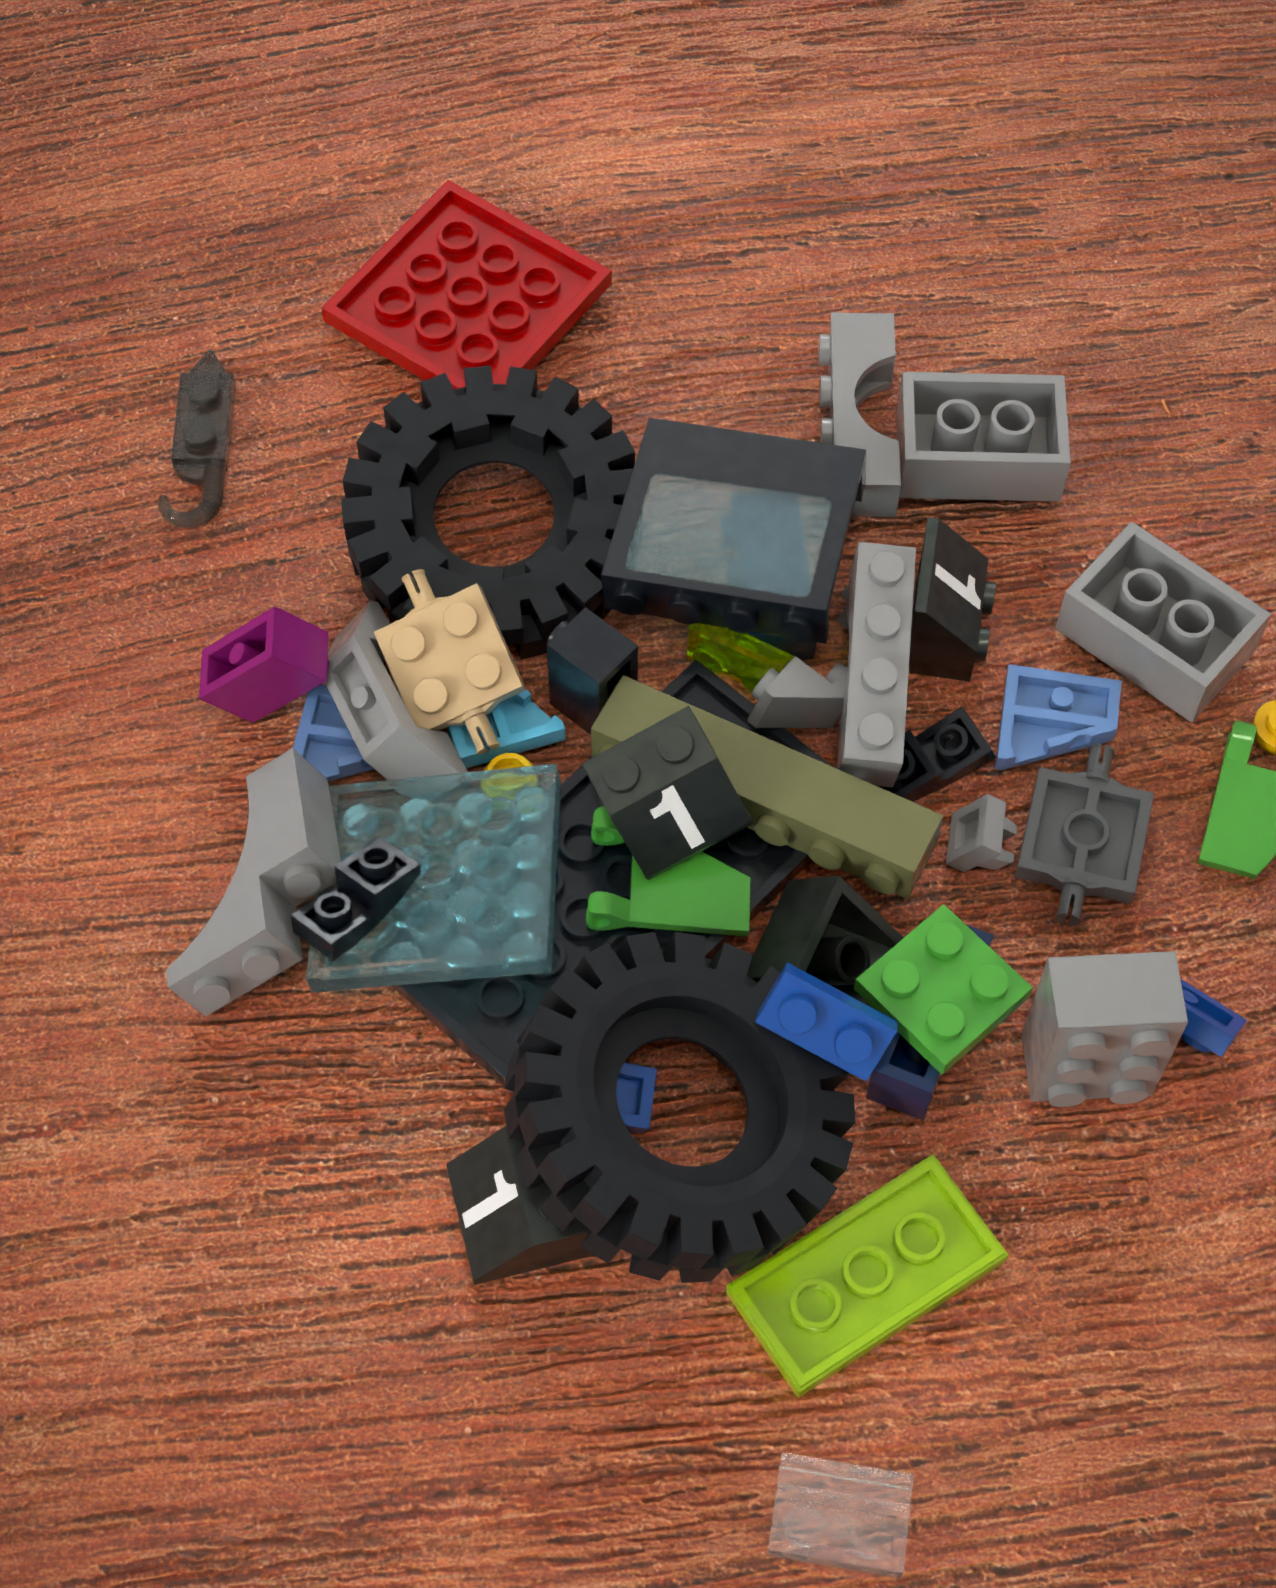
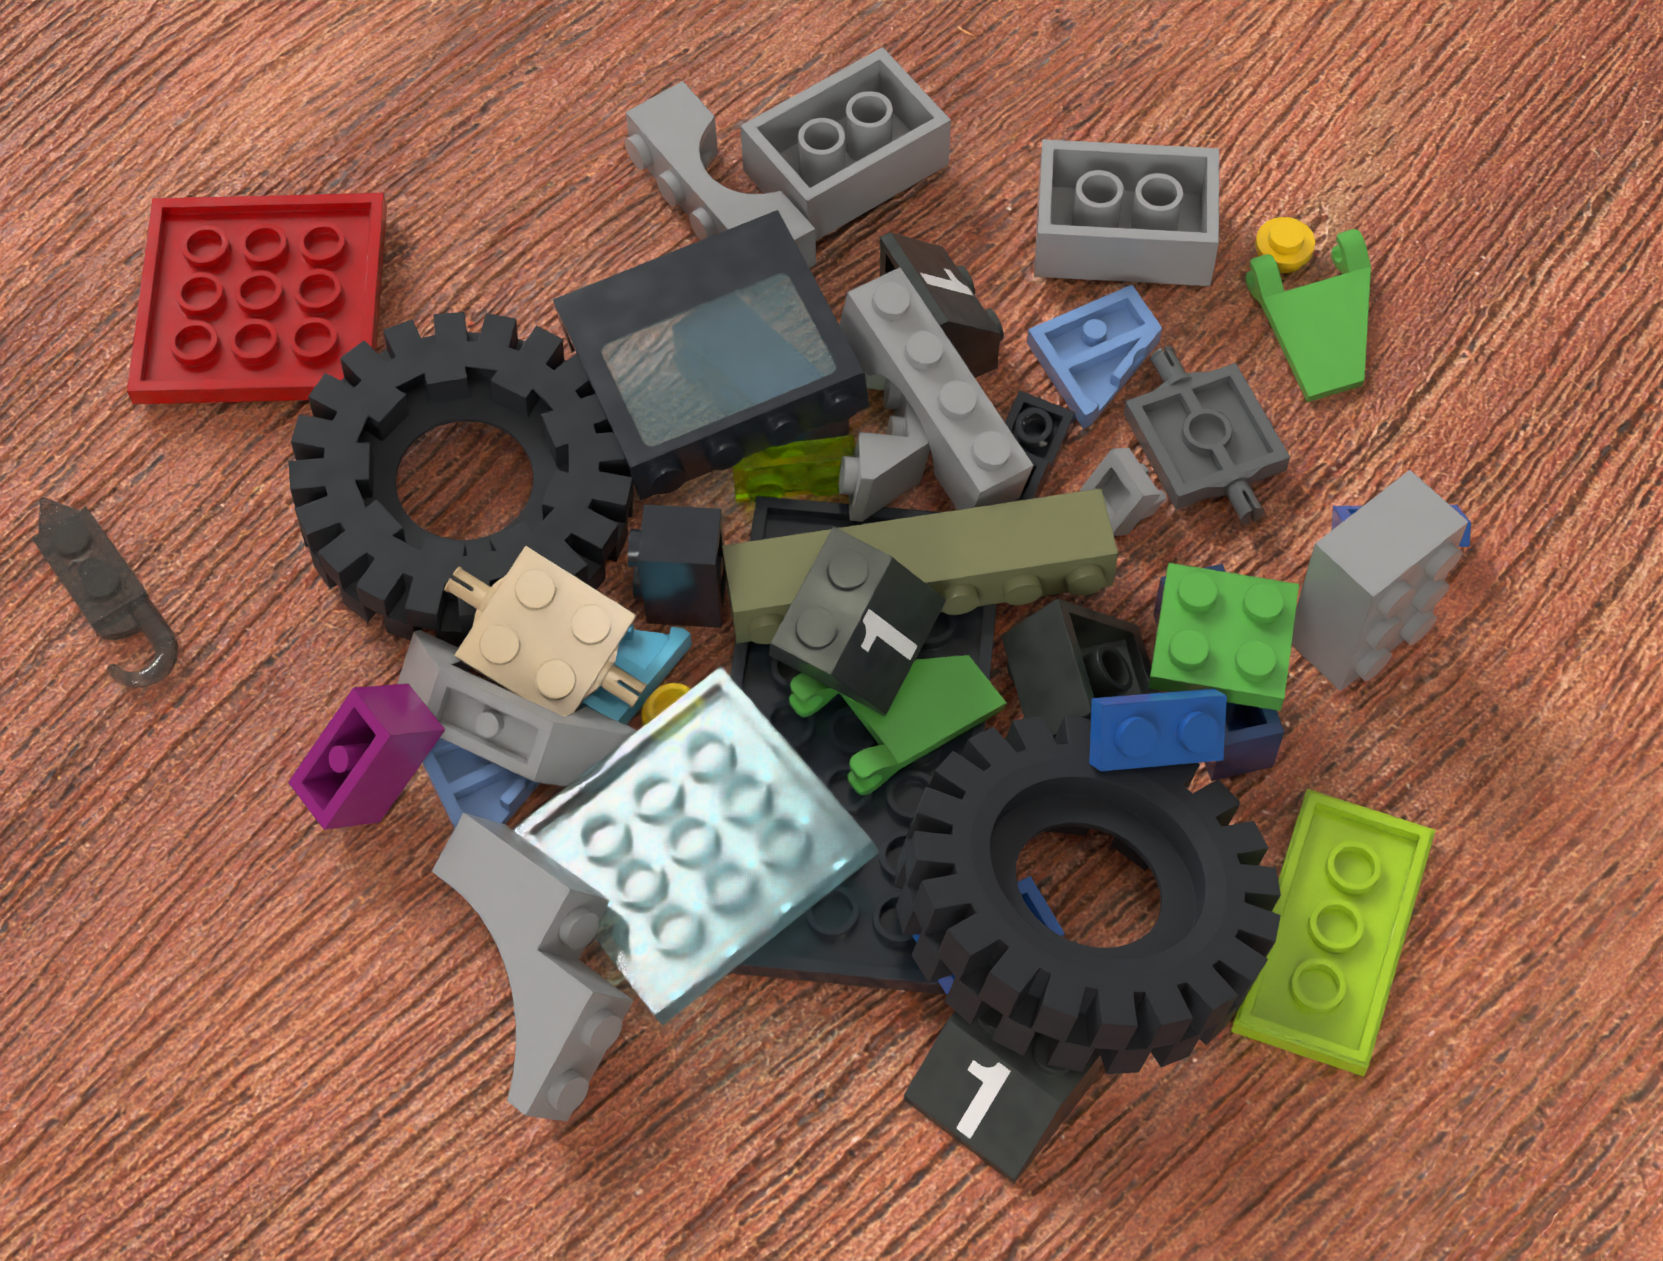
camera: 35 degrees left, 0 degrees up
(364, 893) = (645, 909): black slope -> none
(841, 1515) = (1486, 1146): clear plate -> none

